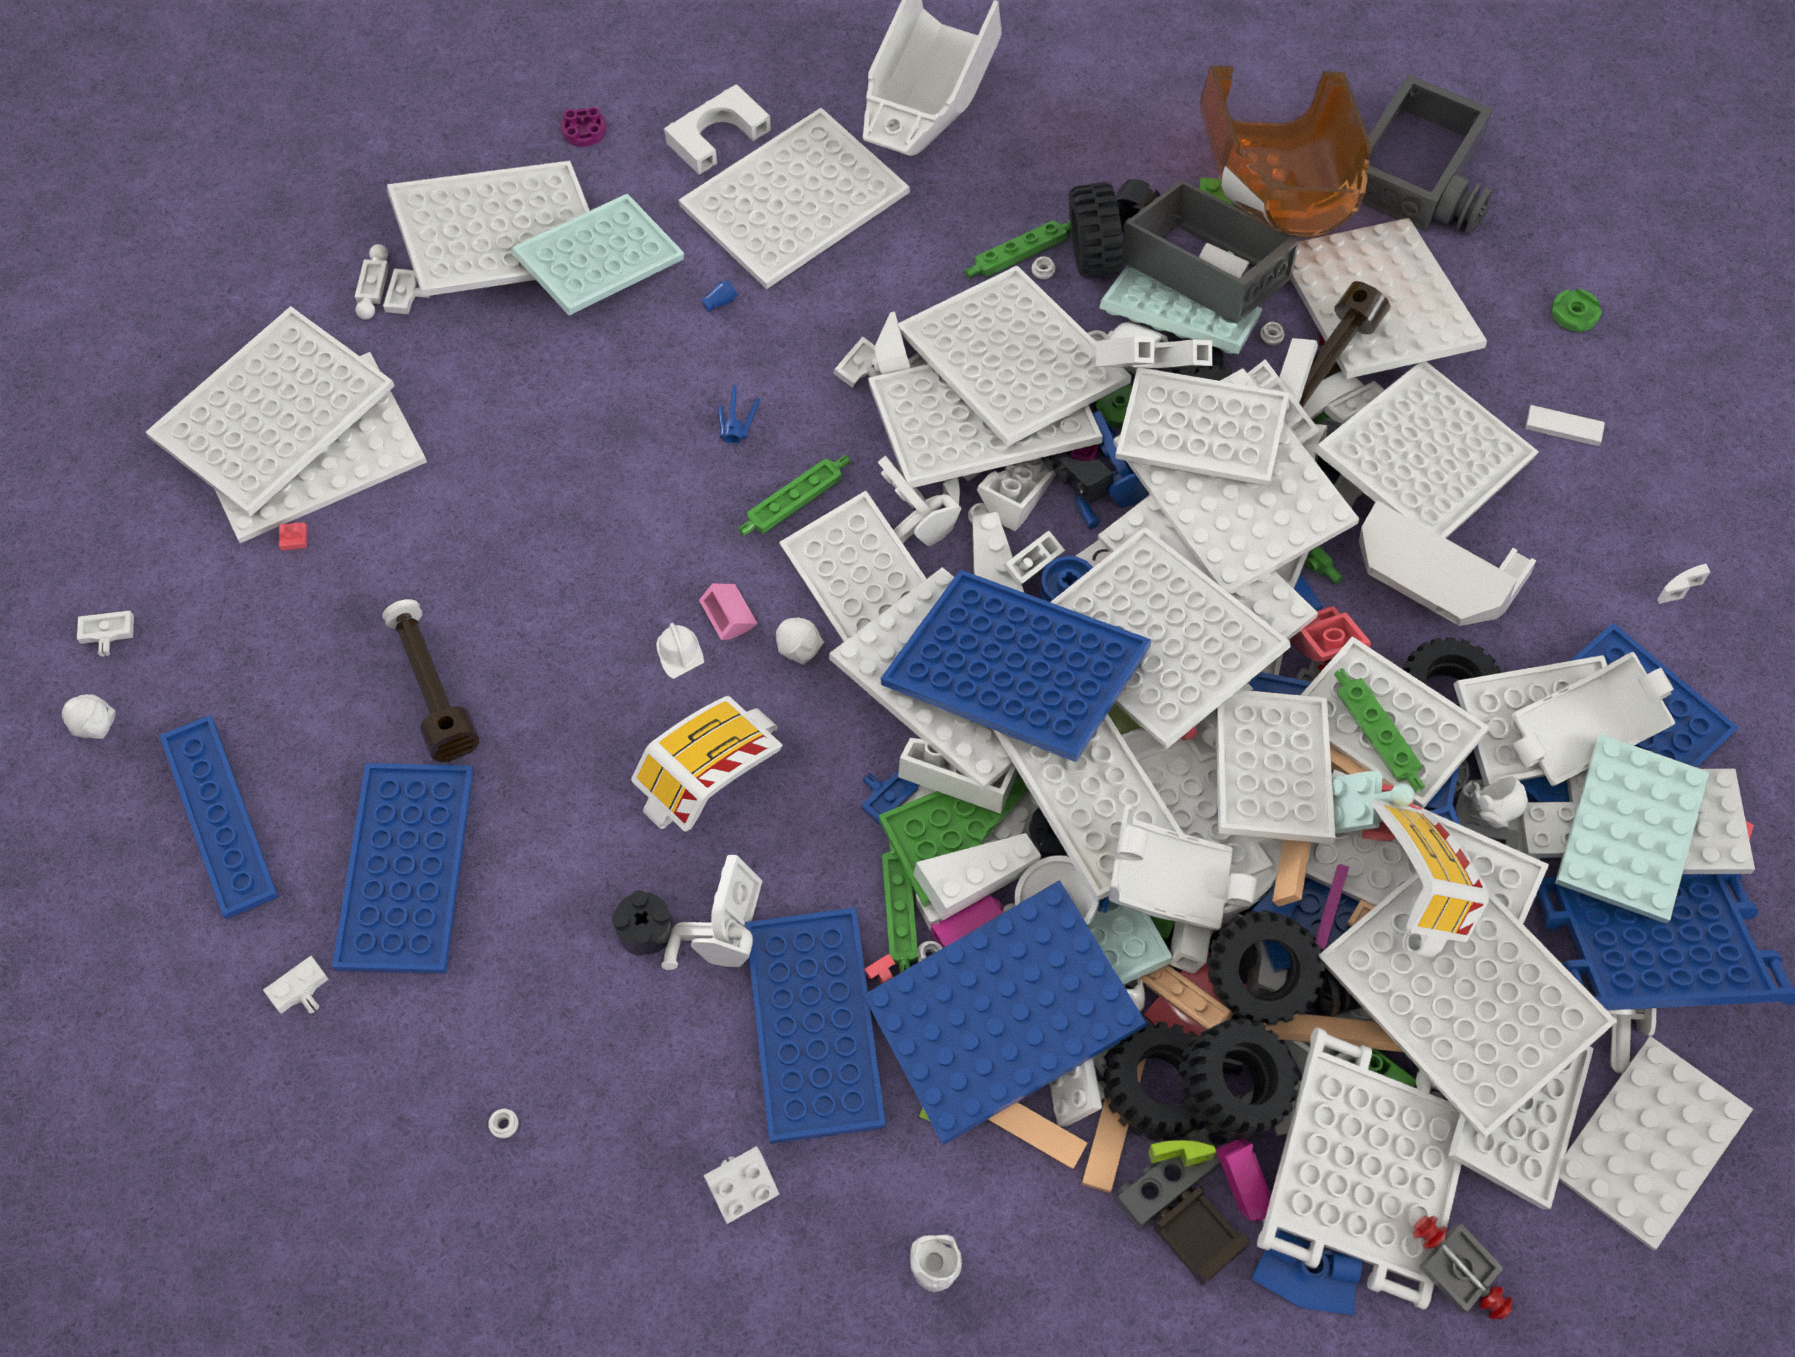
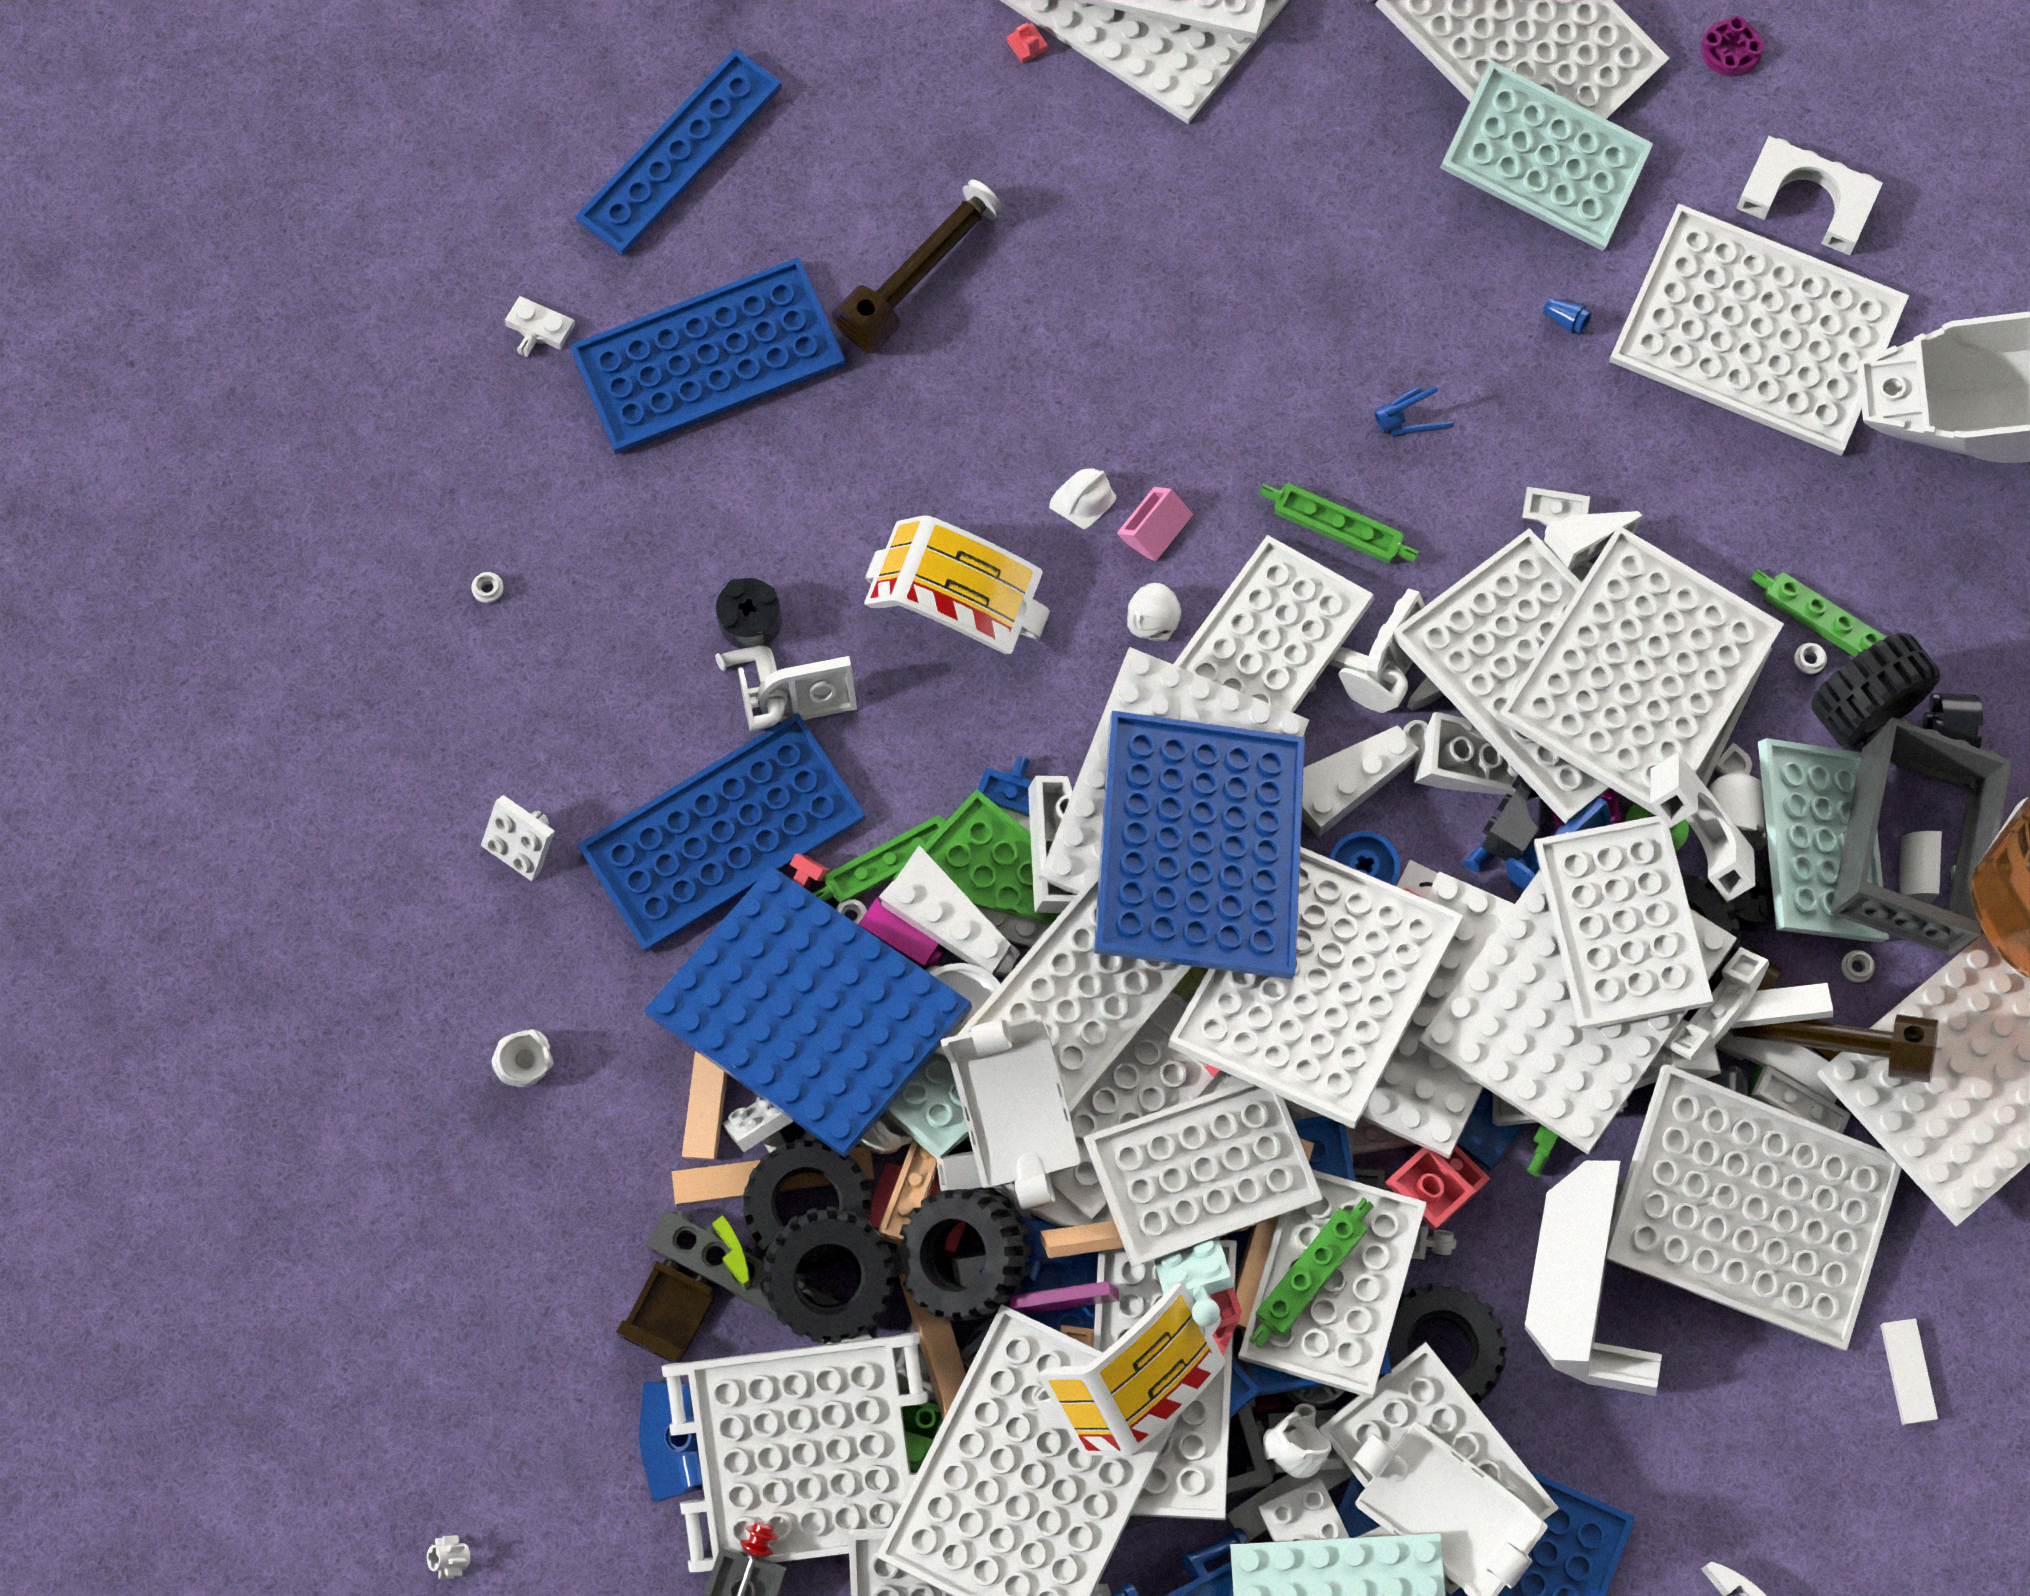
camera: 65 degrees right, 10 degrees up
(1033, 558) = (1370, 812): white slope -> none
(1245, 1178) = (740, 1327): dark pink window -> none

